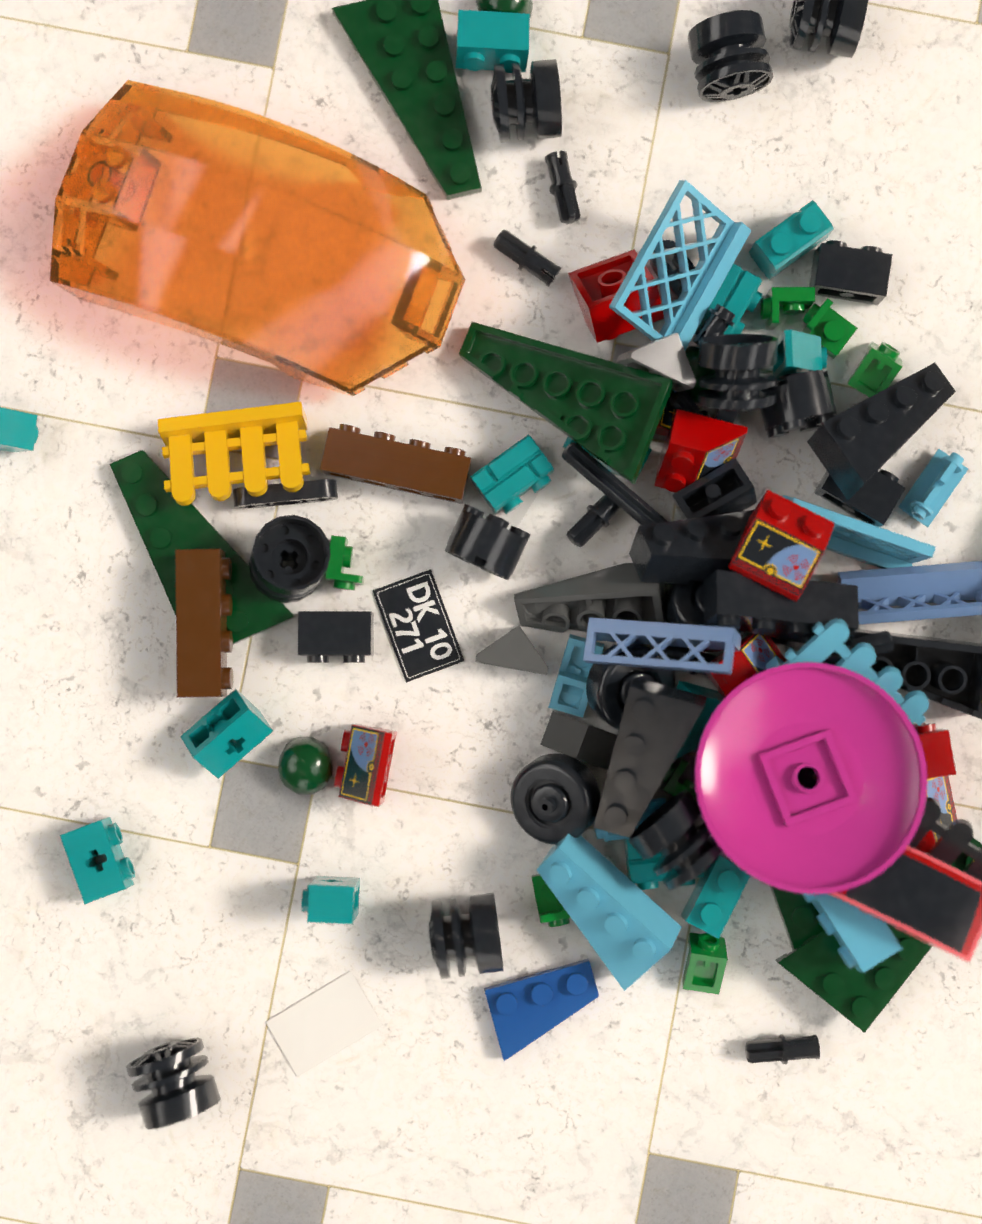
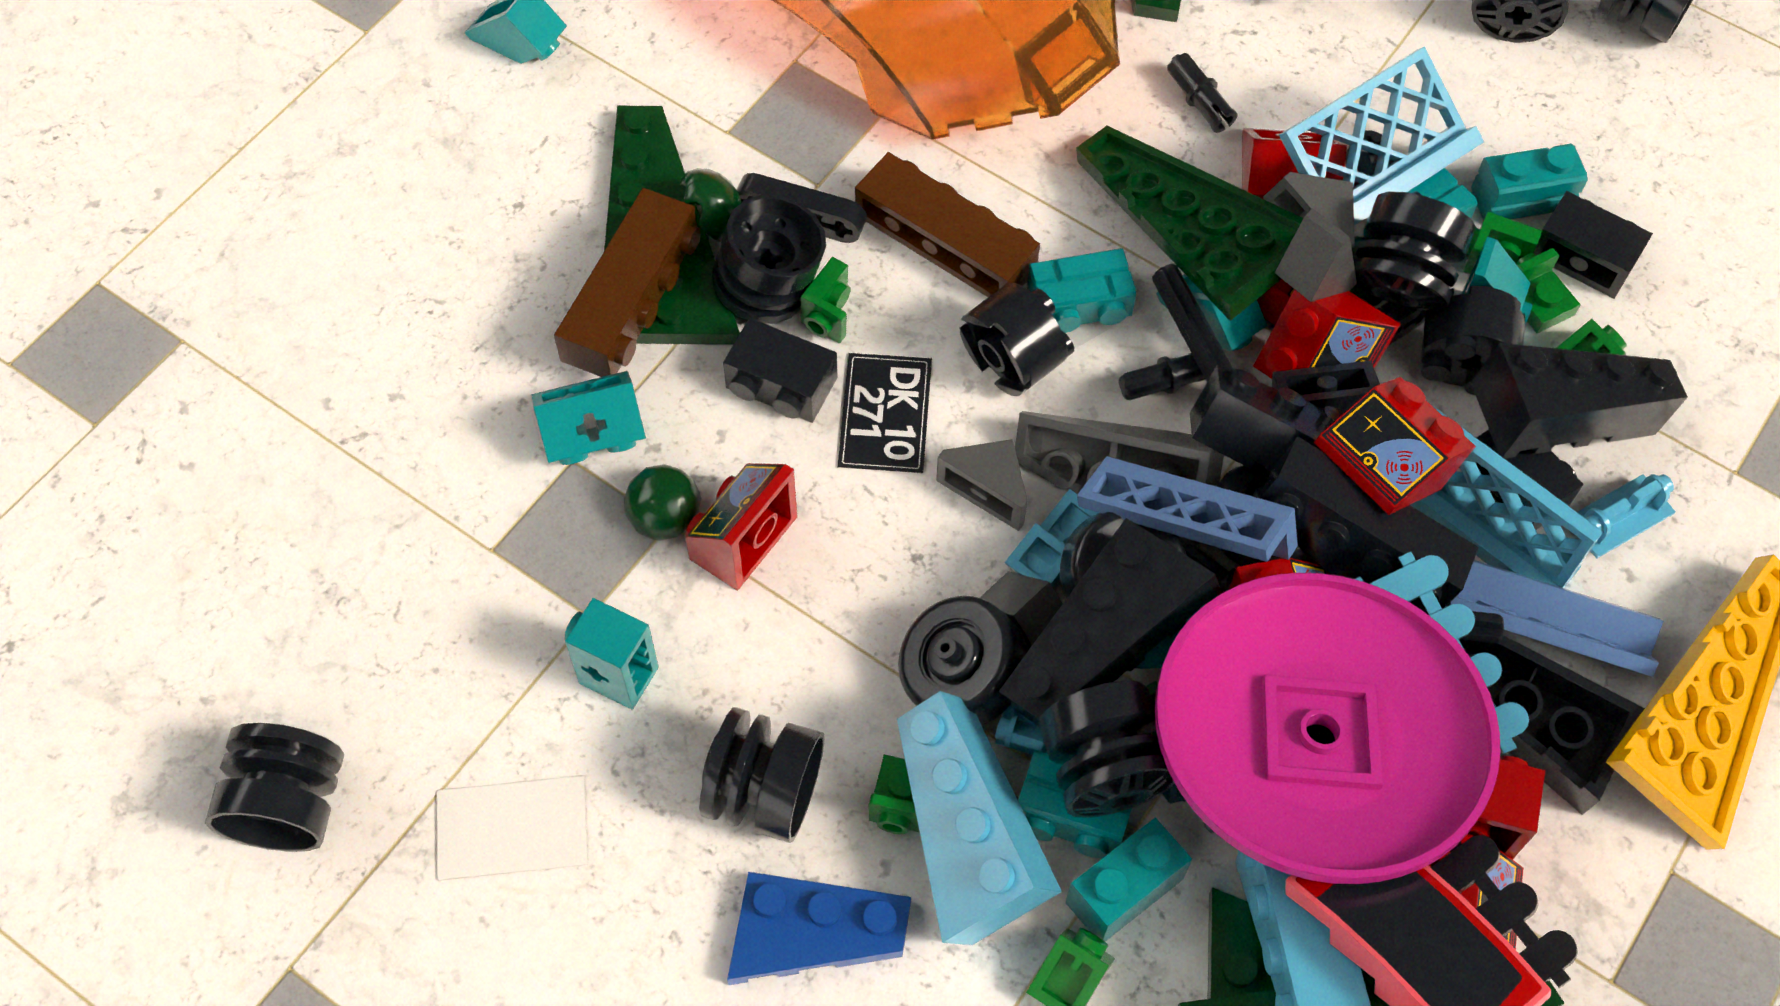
camera: 25 degrees right, 25 degrees down
(99, 879) = (349, 495): teal brick -> none
(224, 524) = (715, 196): none -> dark green hair
(234, 430) = (772, 117): yellow fence -> none
(563, 187) = (1274, 42): black axle -> none
(677, 420) = (1318, 259): none -> dark grey slope

